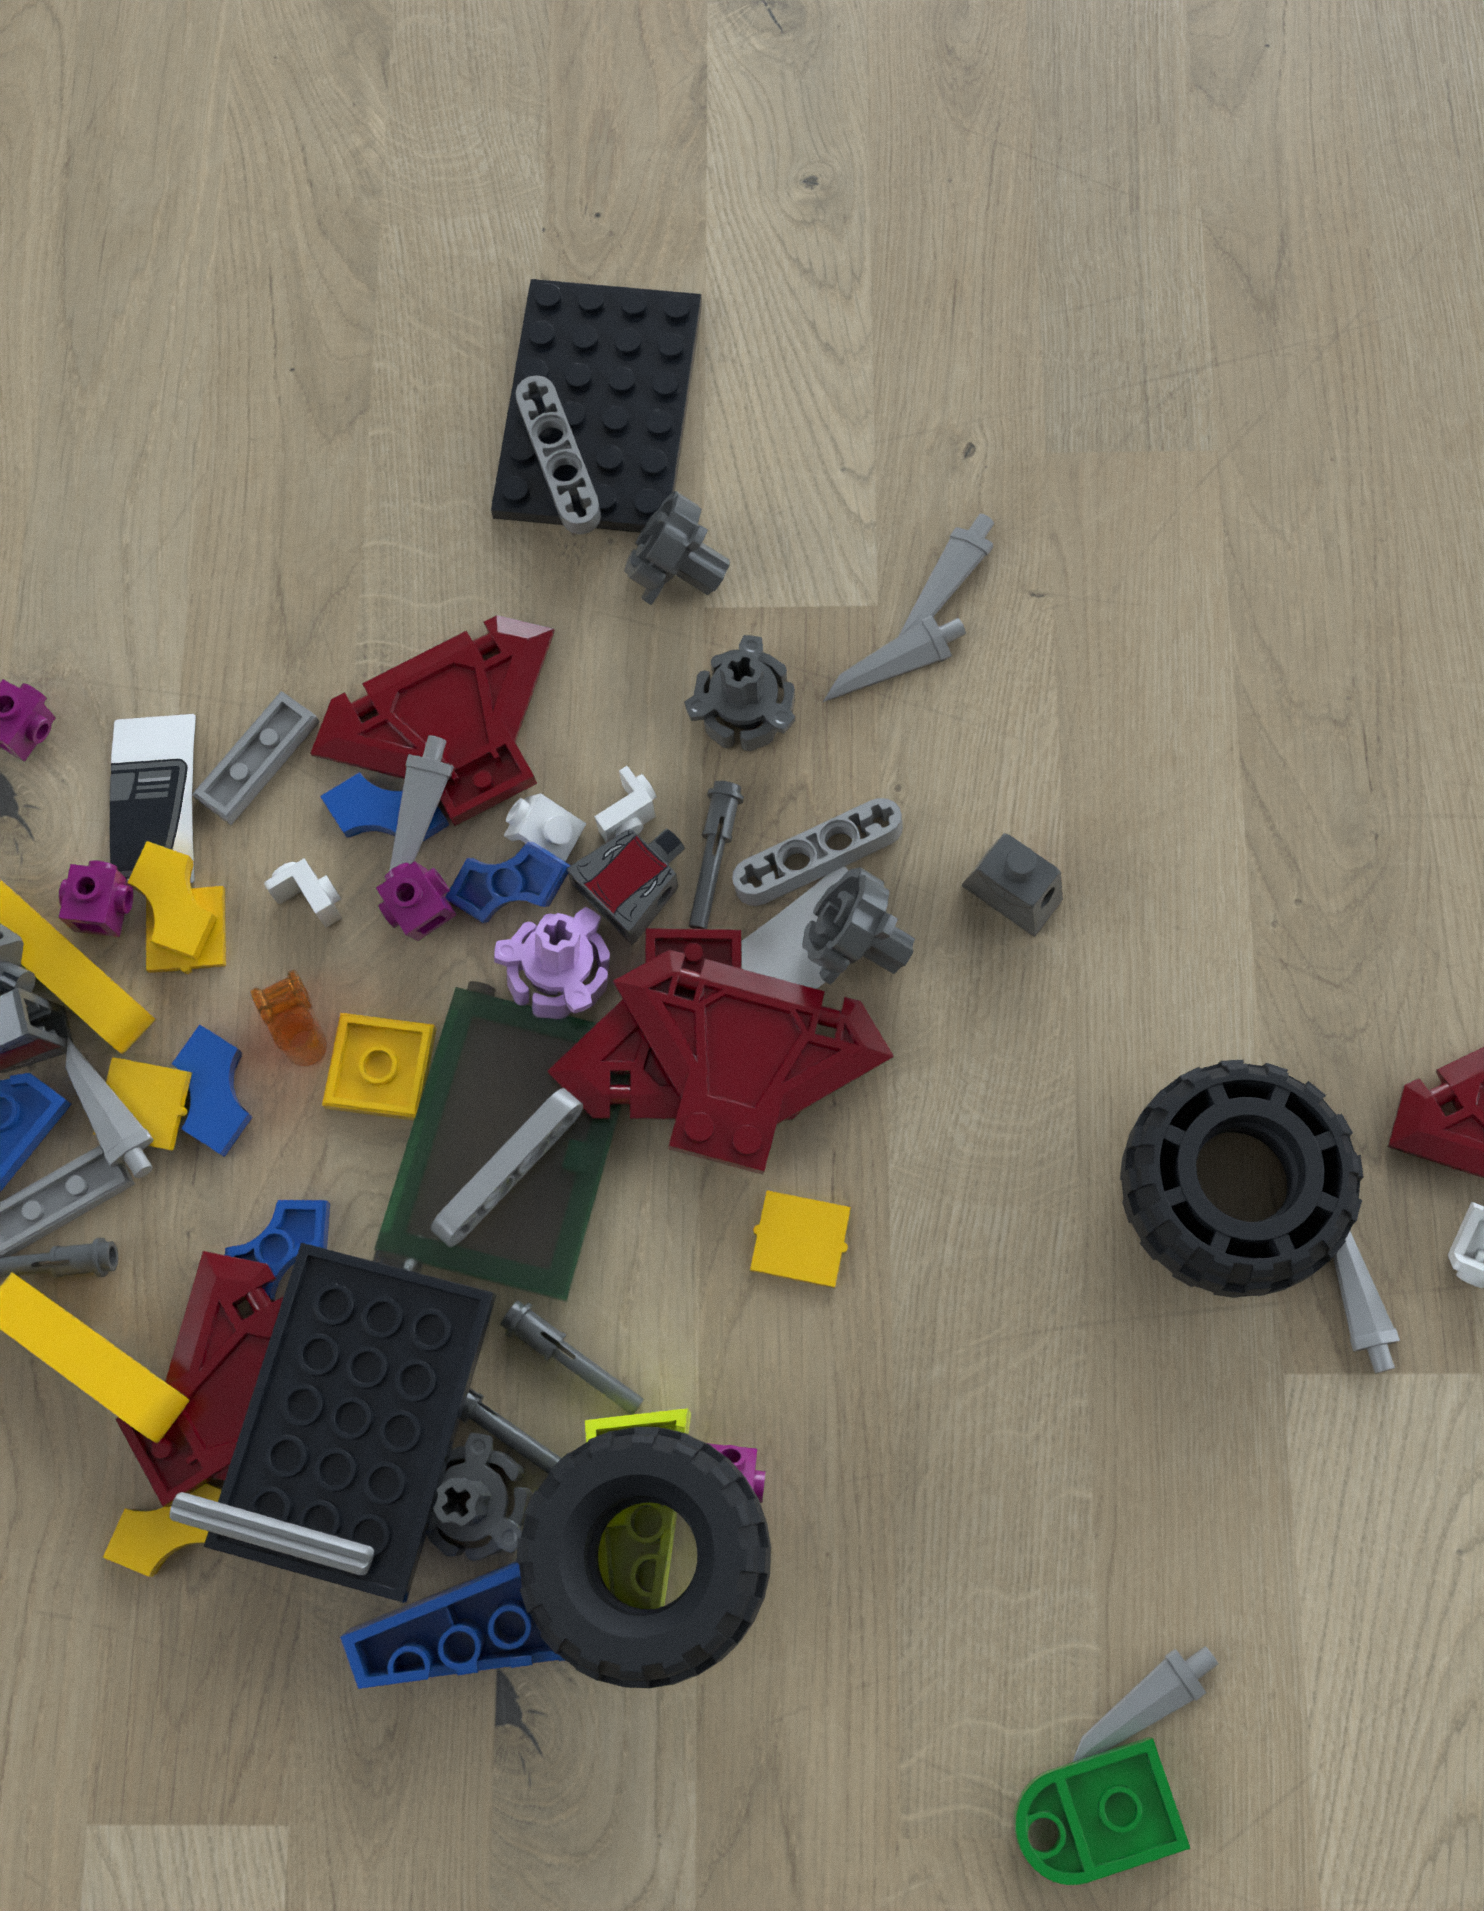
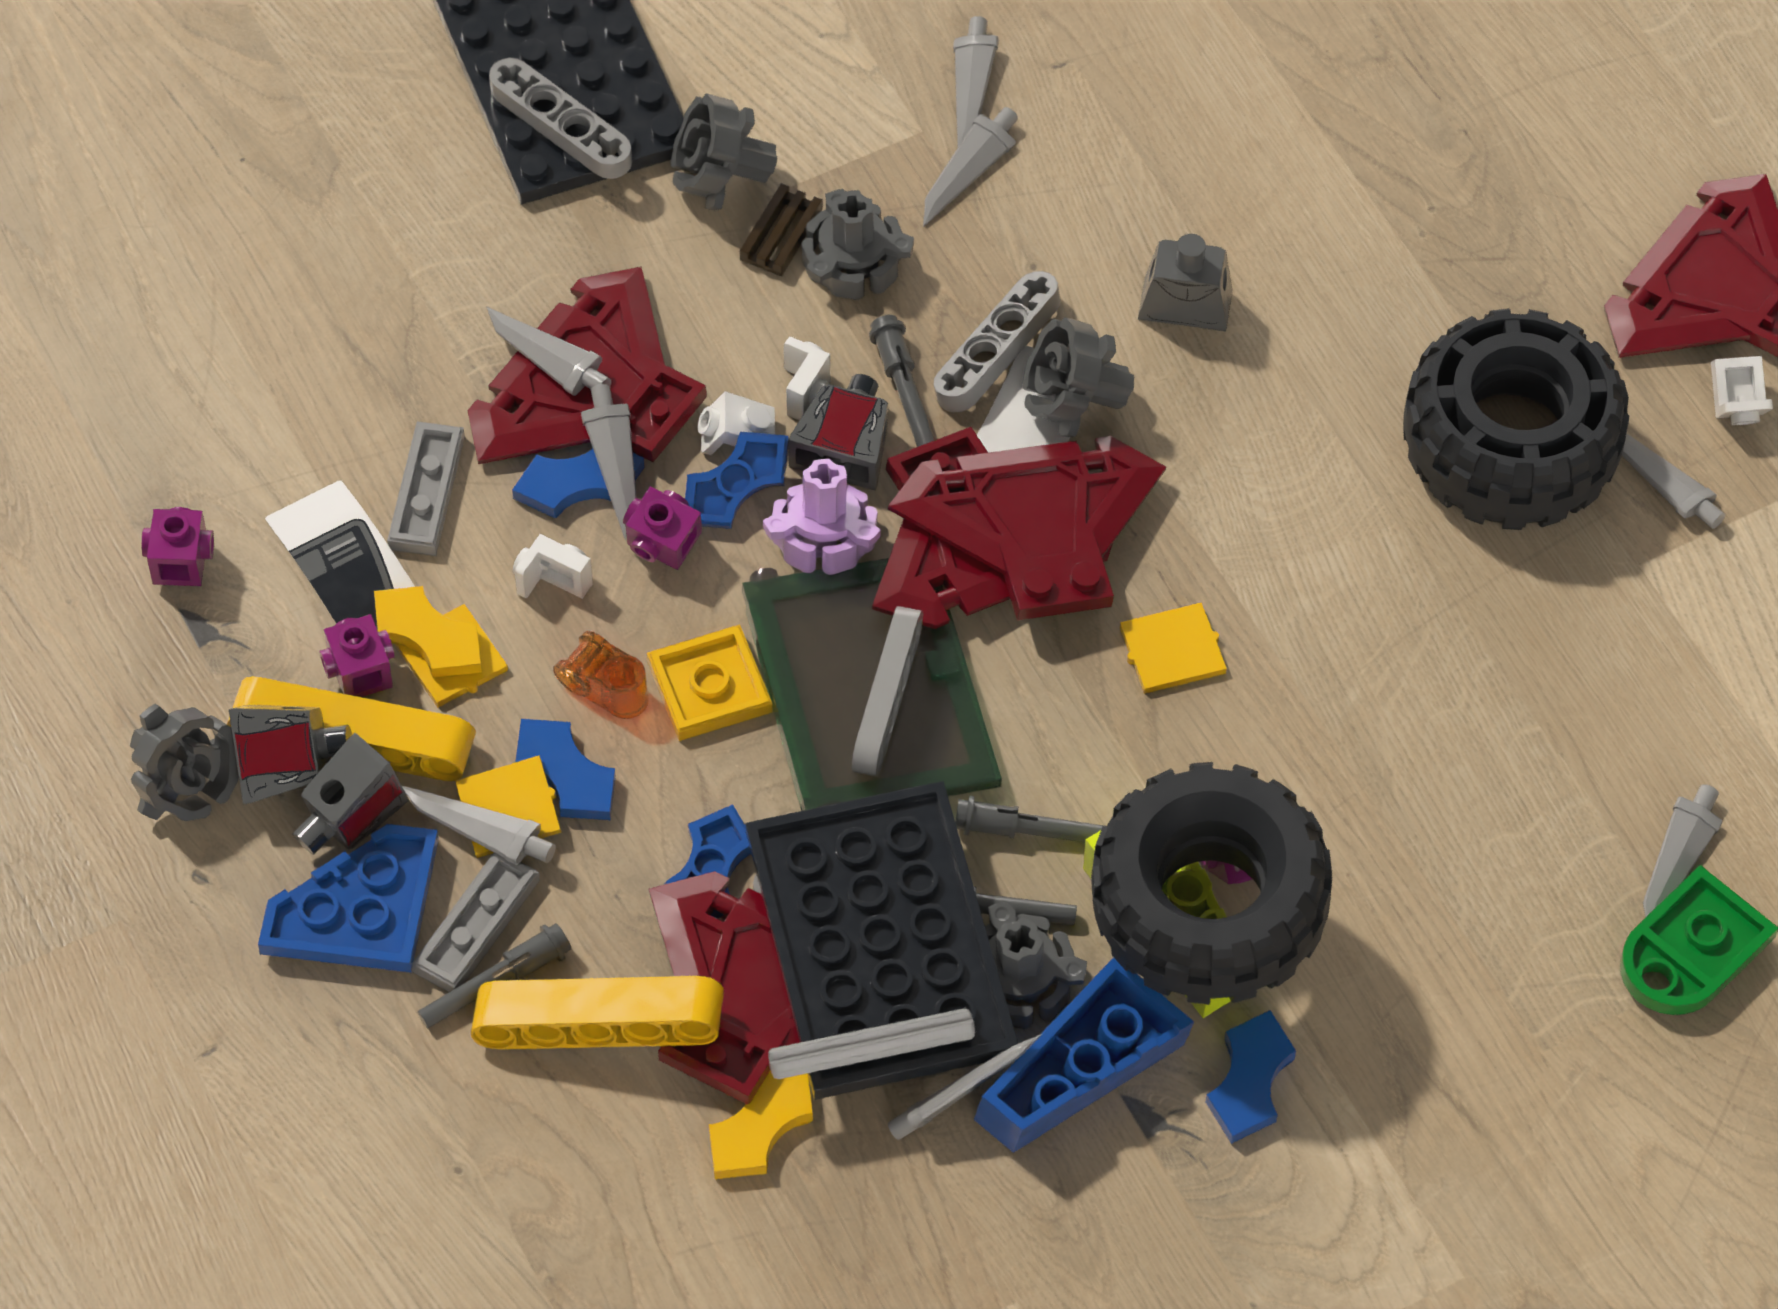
camera: 35 degrees left, 15 degrees down
(325, 1601) = (925, 1110): none -> light grey bar
(427, 691) = (559, 359): none -> light grey bar
(597, 1739) = (1257, 1055): none -> blue tile
(686, 634) = (795, 203): none -> dark brown tile

